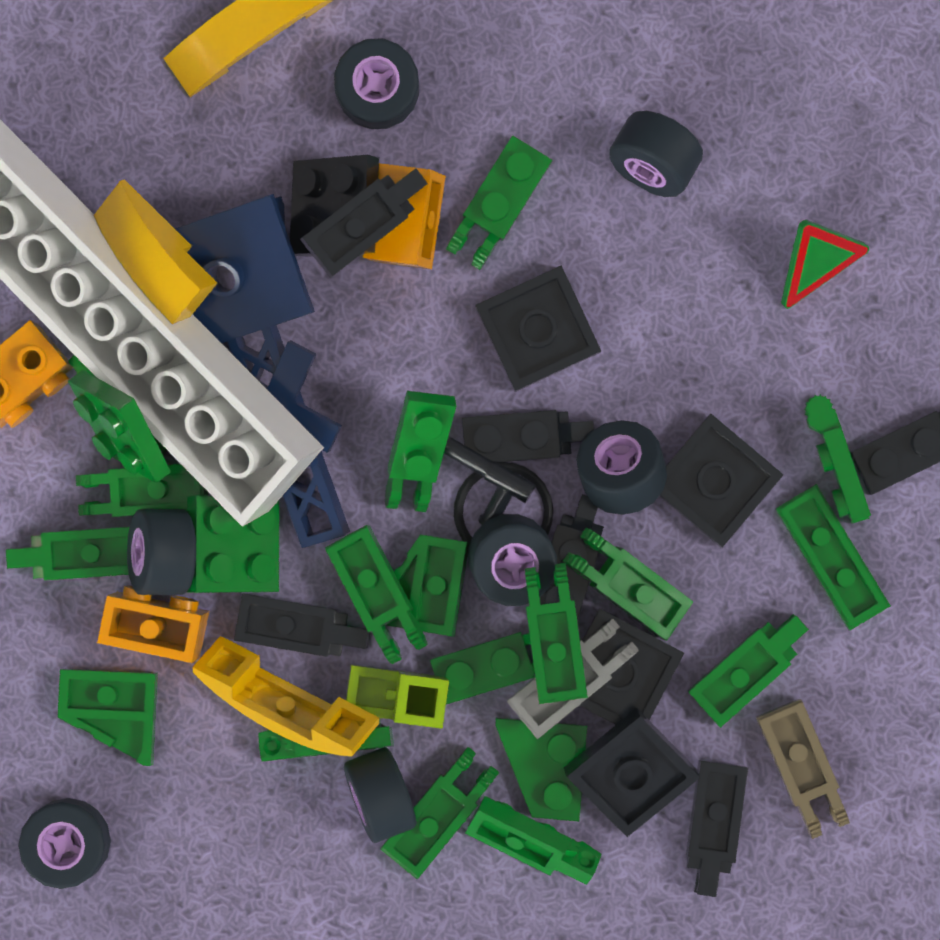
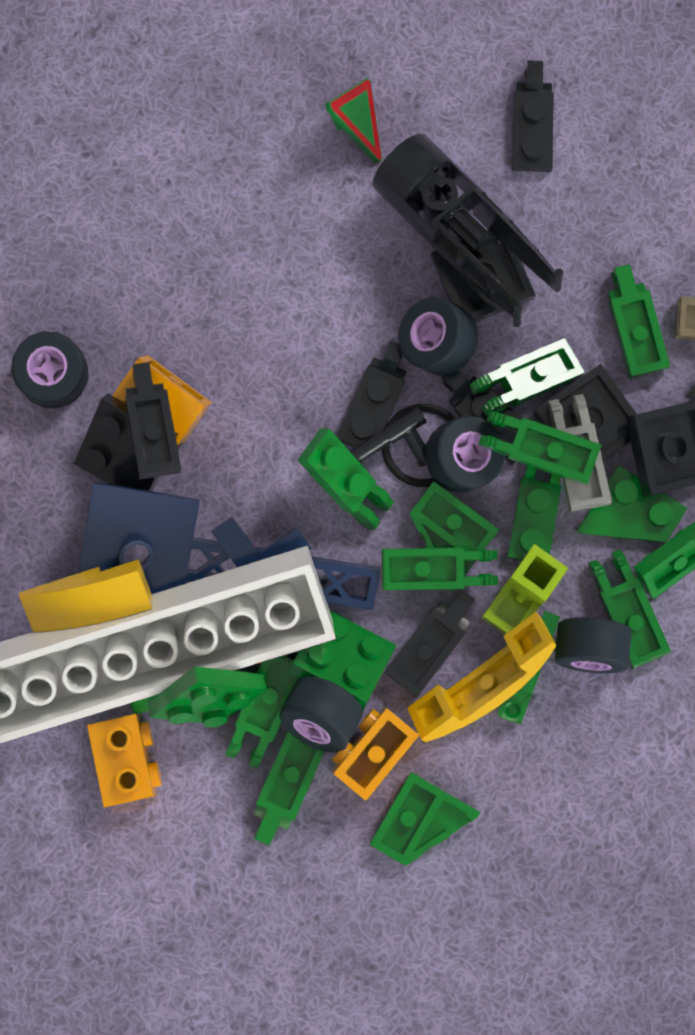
camera: 65 degrees left, 5 degrees down
(54, 857) = (517, 923): black wheel -> none
(501, 197) = (186, 323): green hinge -> none
(538, 328) = (299, 346): black plate -> none
(656, 153) = (215, 191): black wheel -> none
(785, 359) = (421, 174): none -> black piece
(832, 557) = (584, 221): green tile -> none
(836, 456) = (512, 177): green hinge -> none

